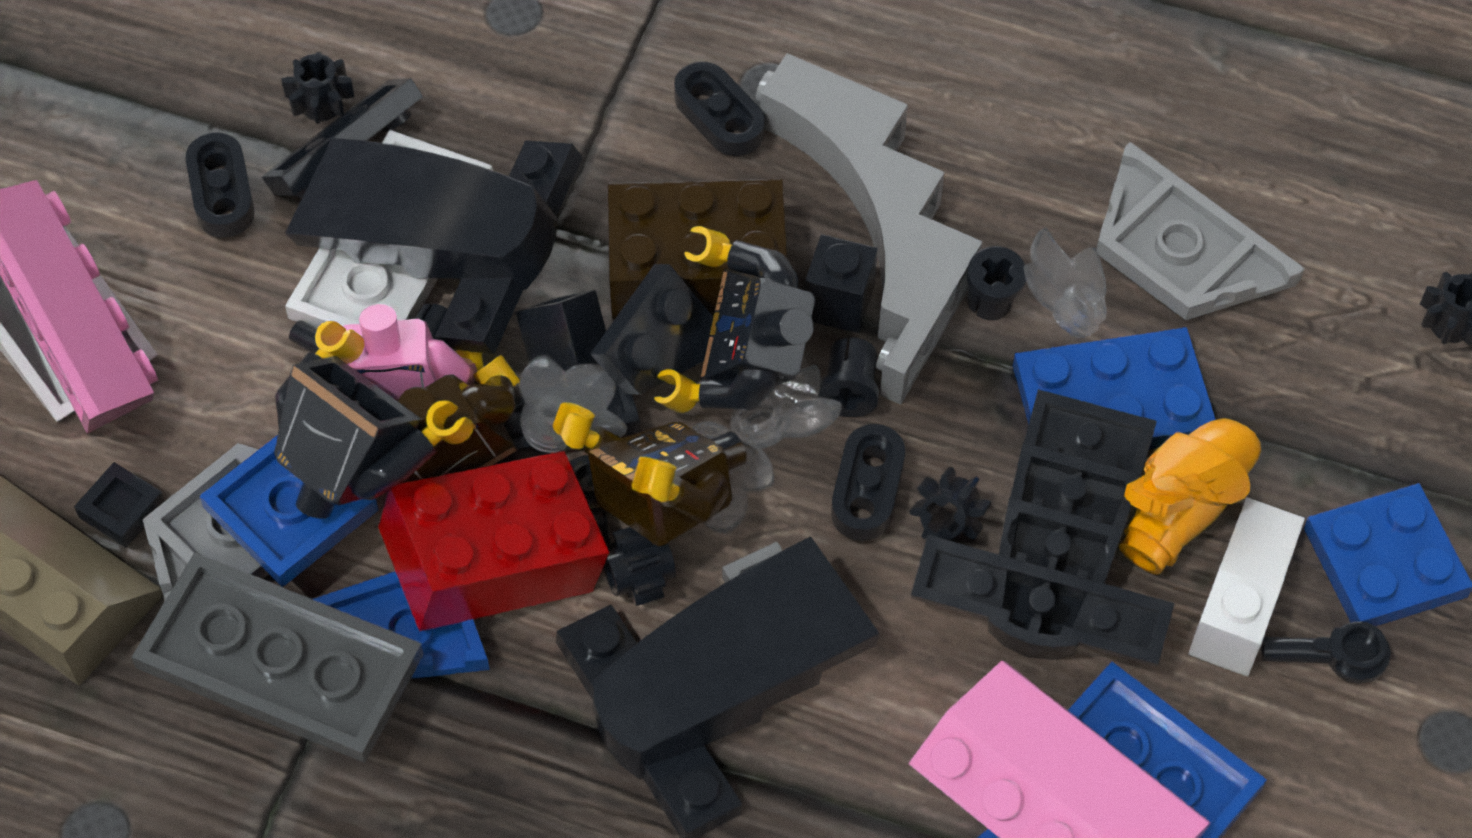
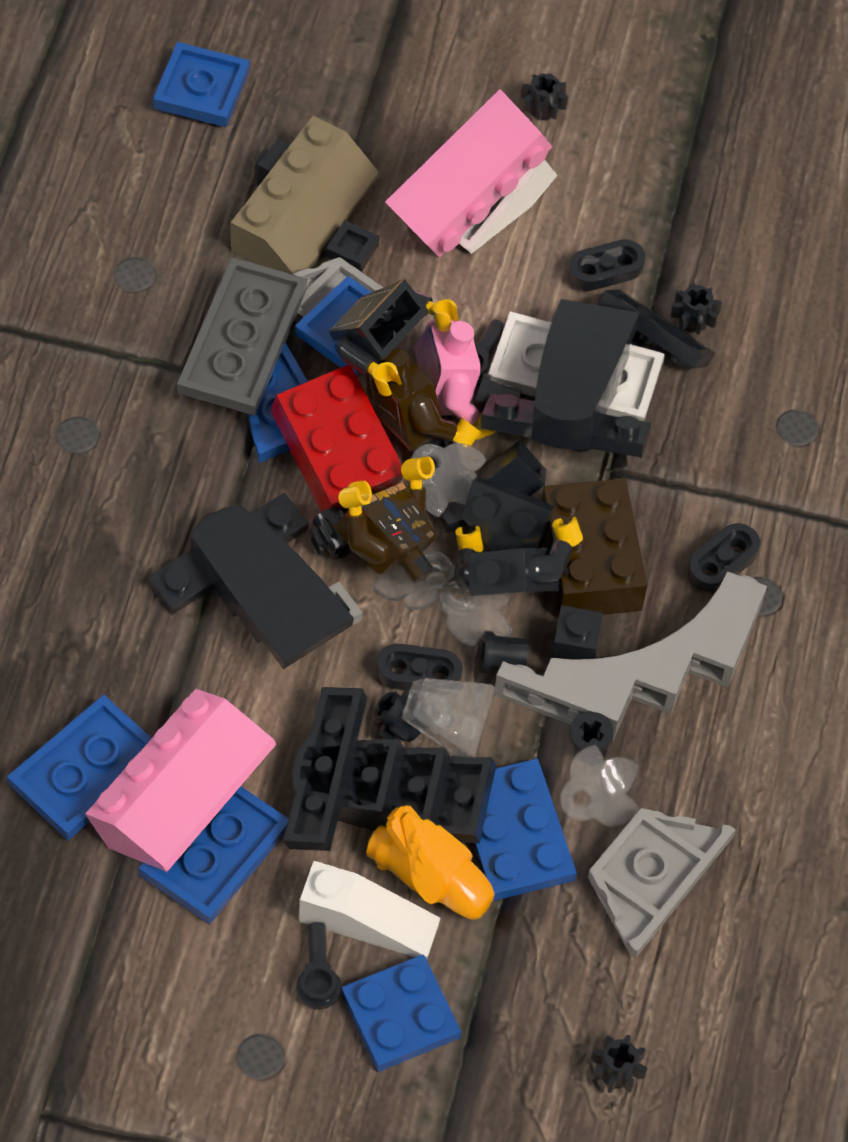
camera: 80 degrees right, 0 degrees up
(949, 443) = (449, 712): none -> clear wing

